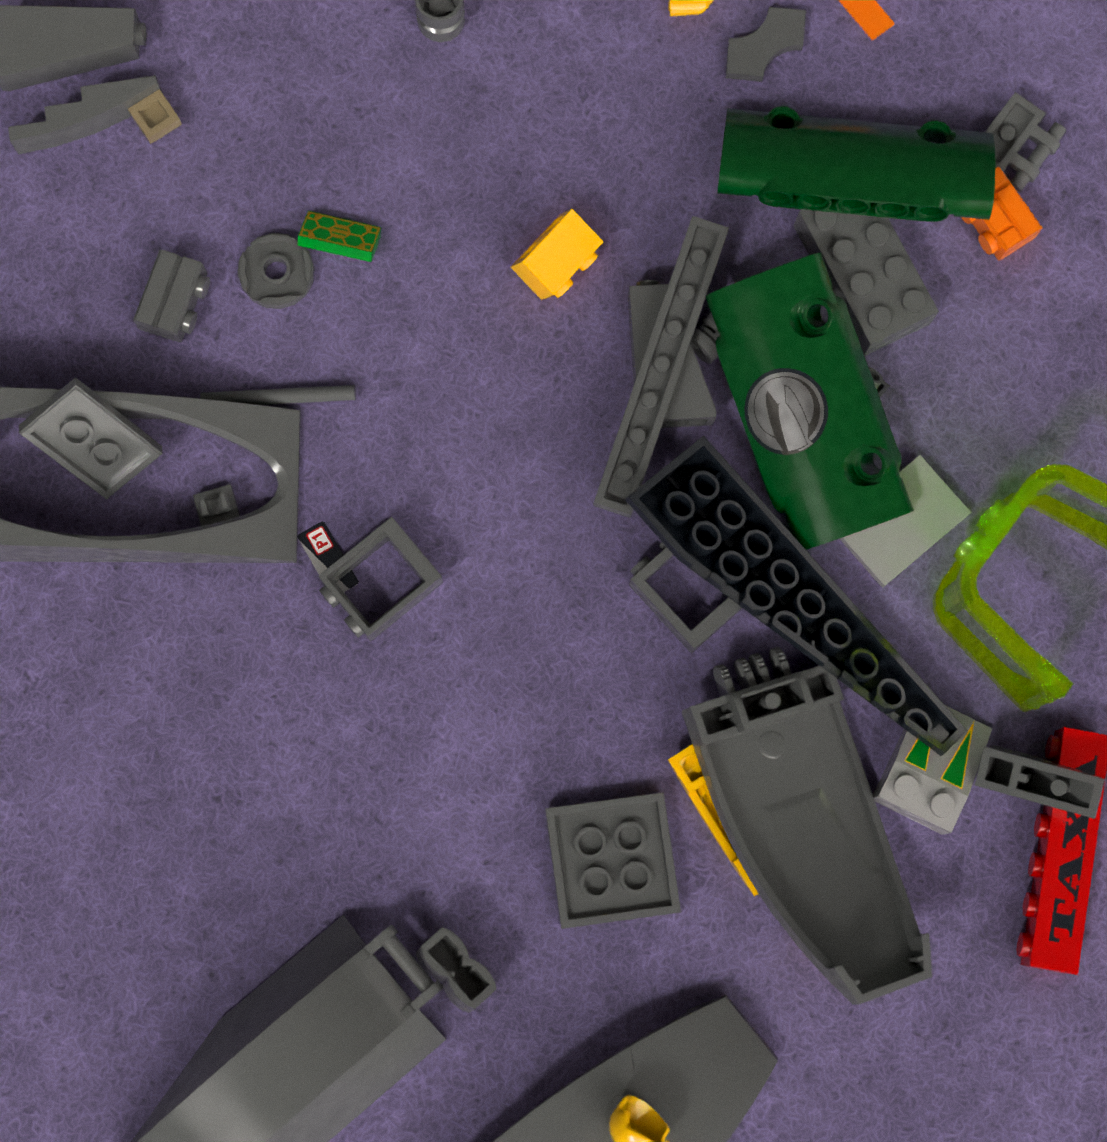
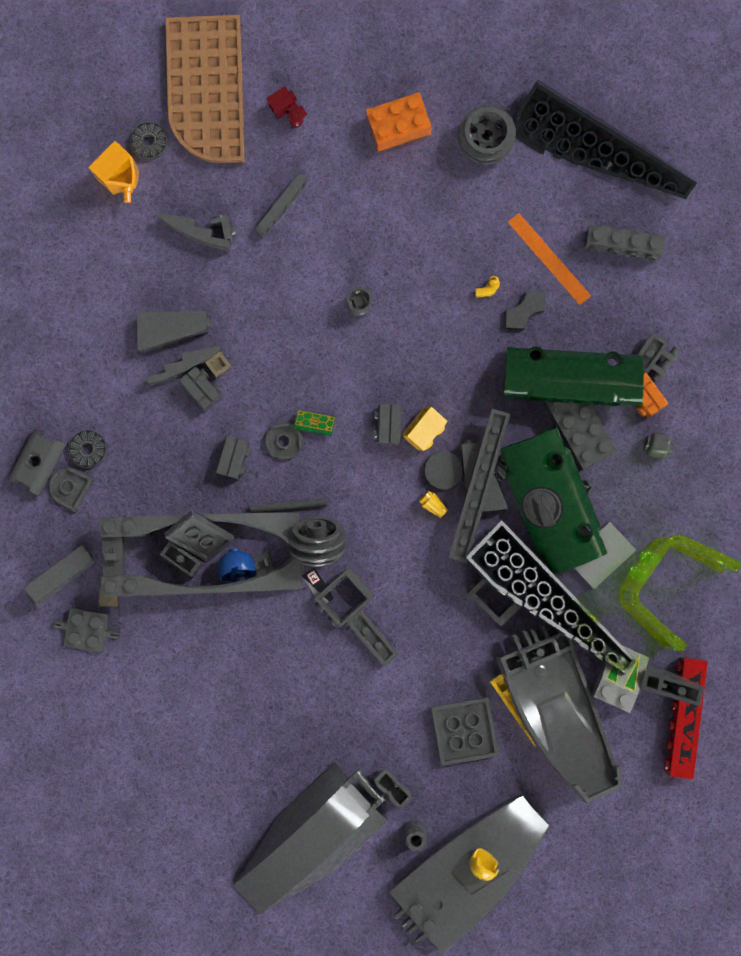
camera: 10 degrees right, 5 degrees up
(53, 487) = (181, 559): none -> dark grey brick
(116, 160) = (201, 389): none -> dark grey brick
(163, 505) = (236, 565): none -> blue cylinder
(328, 459) = (317, 541): none -> dark grey wheel
(432, 664) = (372, 638): none -> dark grey plate
(487, 245) = (388, 424): none -> dark grey brick
(505, 1053) = (415, 827): none -> dark grey plant
(568, 404) = (433, 504): none -> yellow cone
(591, 341) = (443, 470): none -> dark grey tile
(1020, 310) = (658, 445): none -> dark grey head

